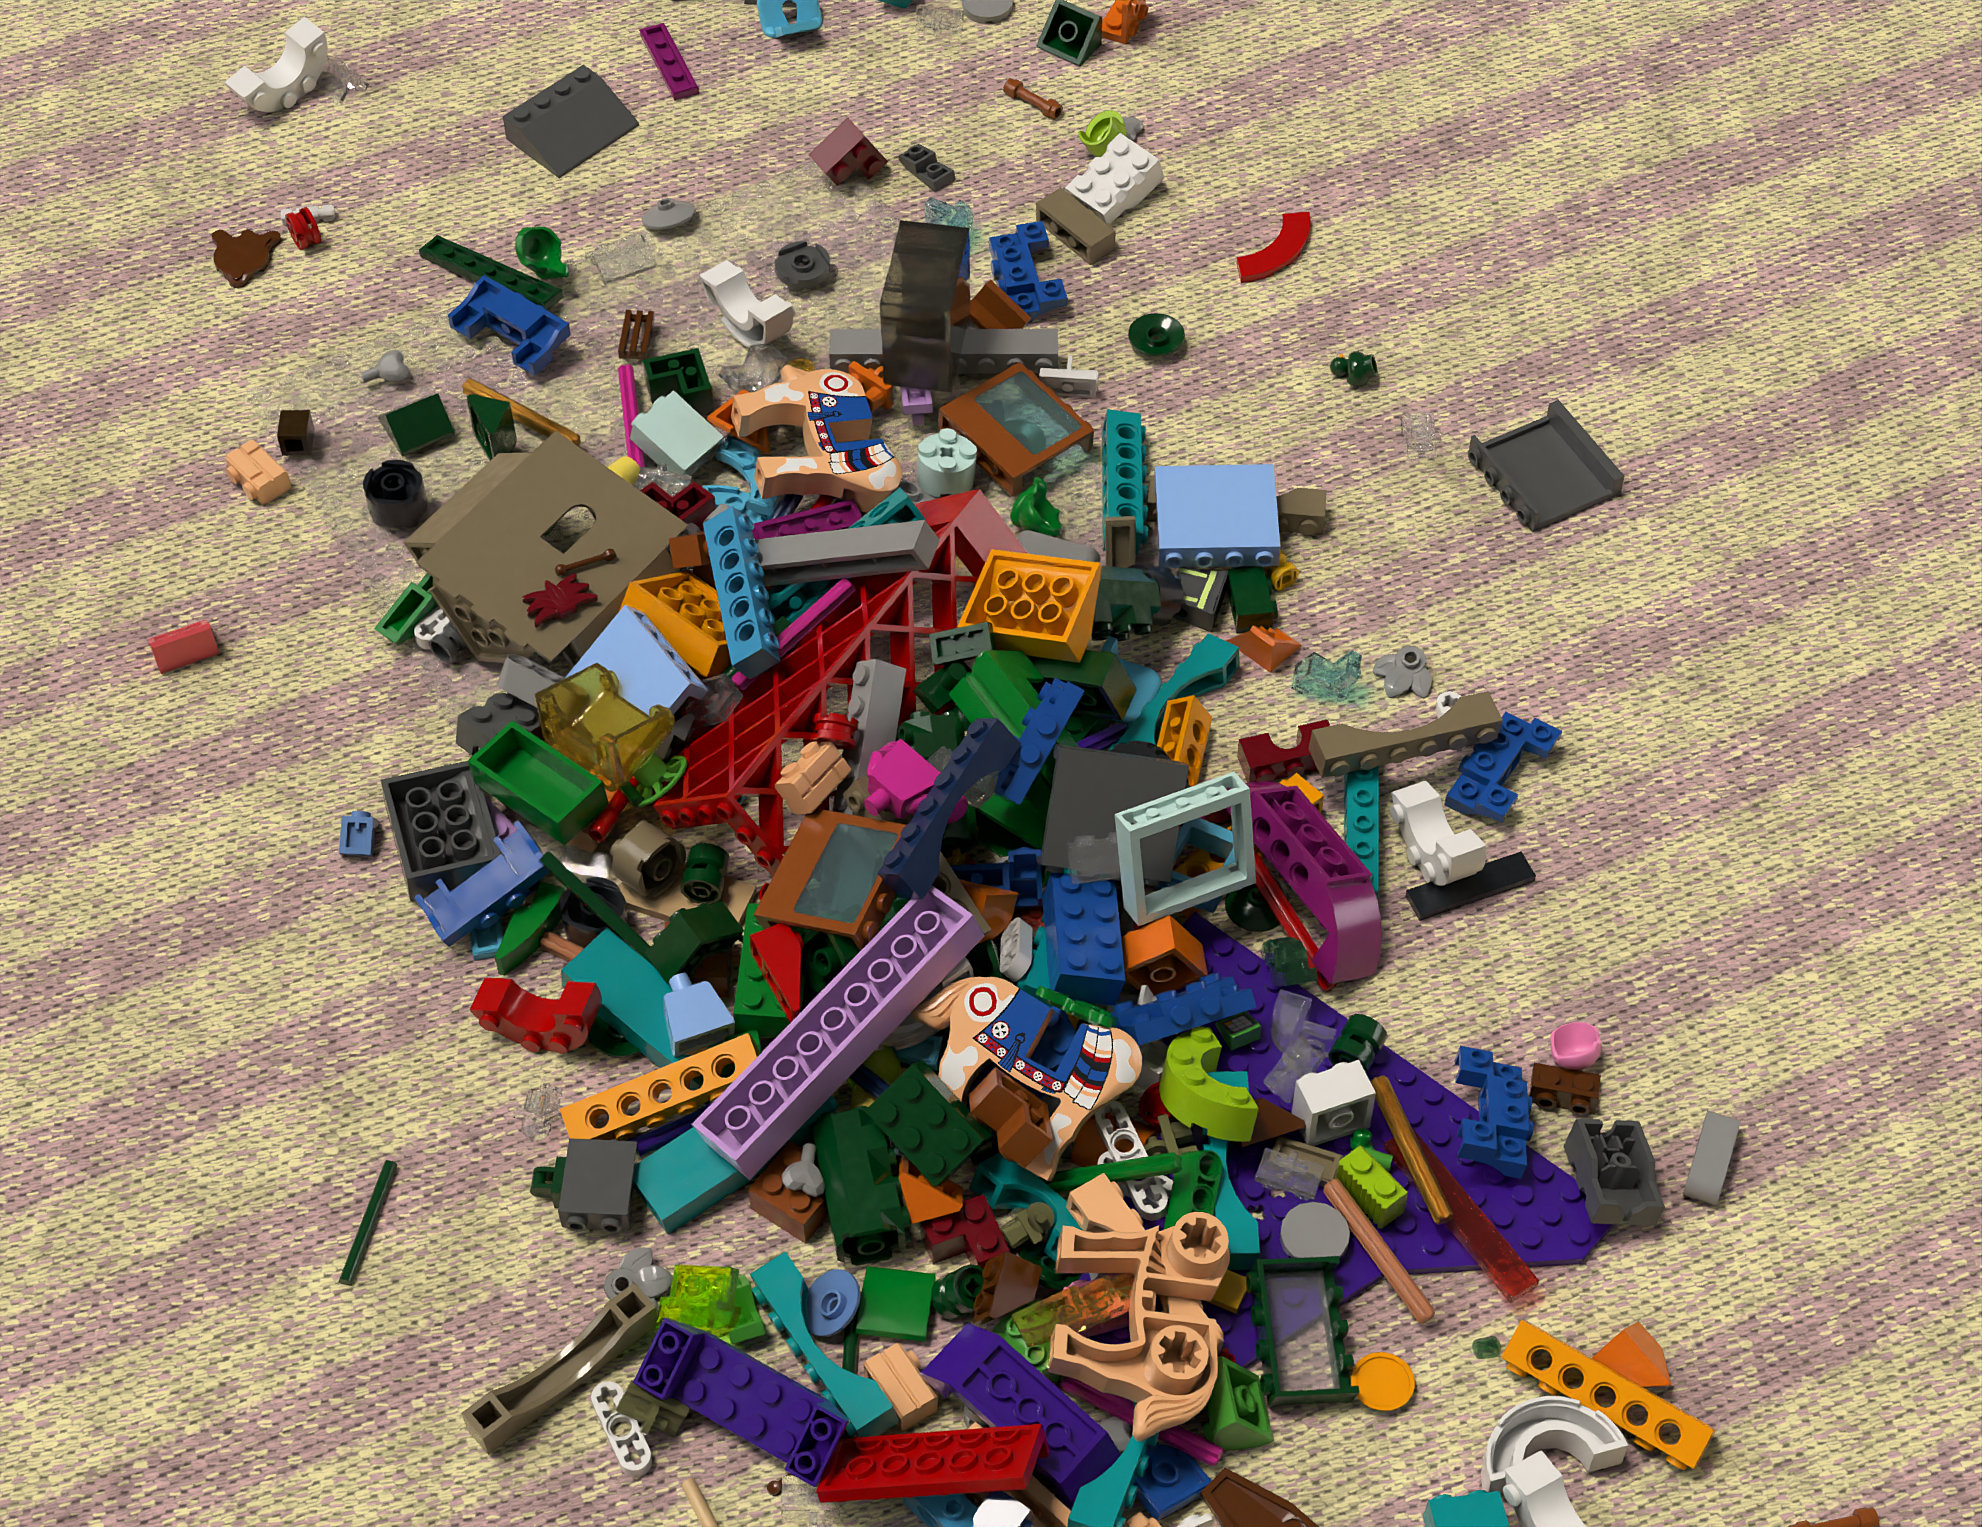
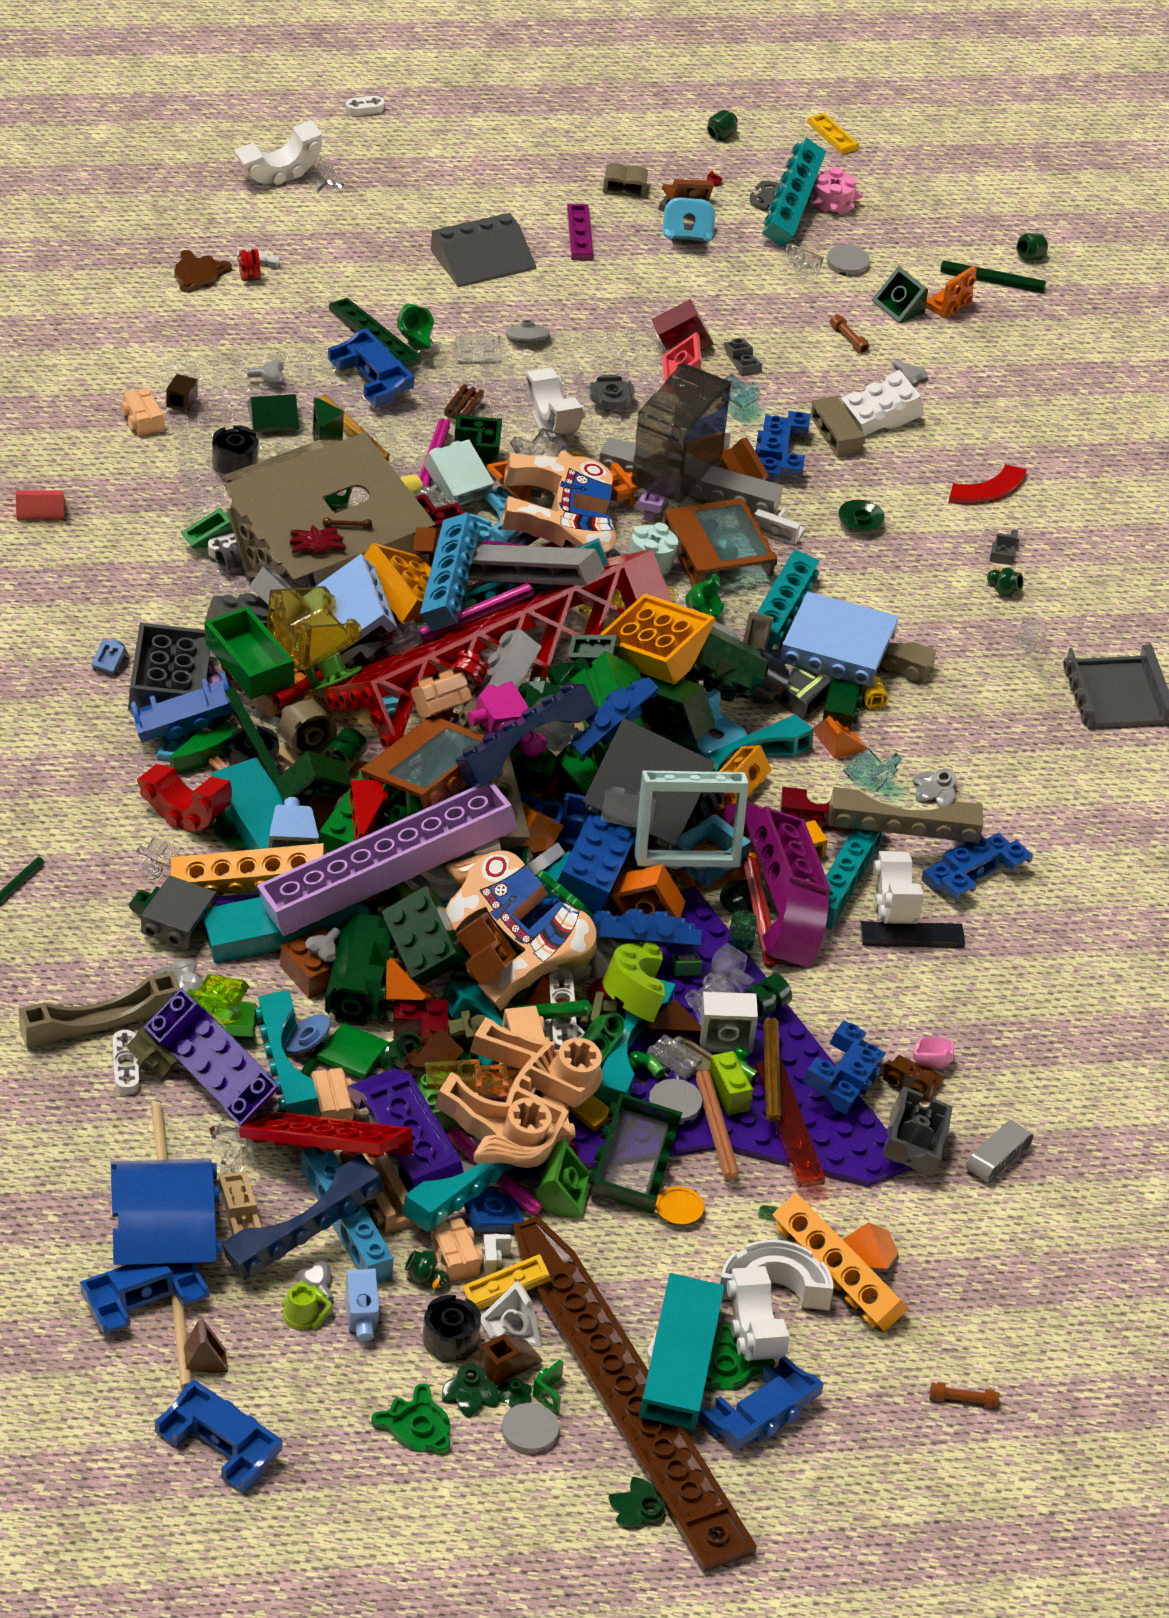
camera: 15 degrees right, 10 degrees down
(868, 200) = (685, 352): none -> coral slope
(1102, 131) = (889, 366): lime helmet -> none
(1253, 1189) = (638, 1058): none -> arm
(1330, 323) = (1004, 548): none -> dark grey slope

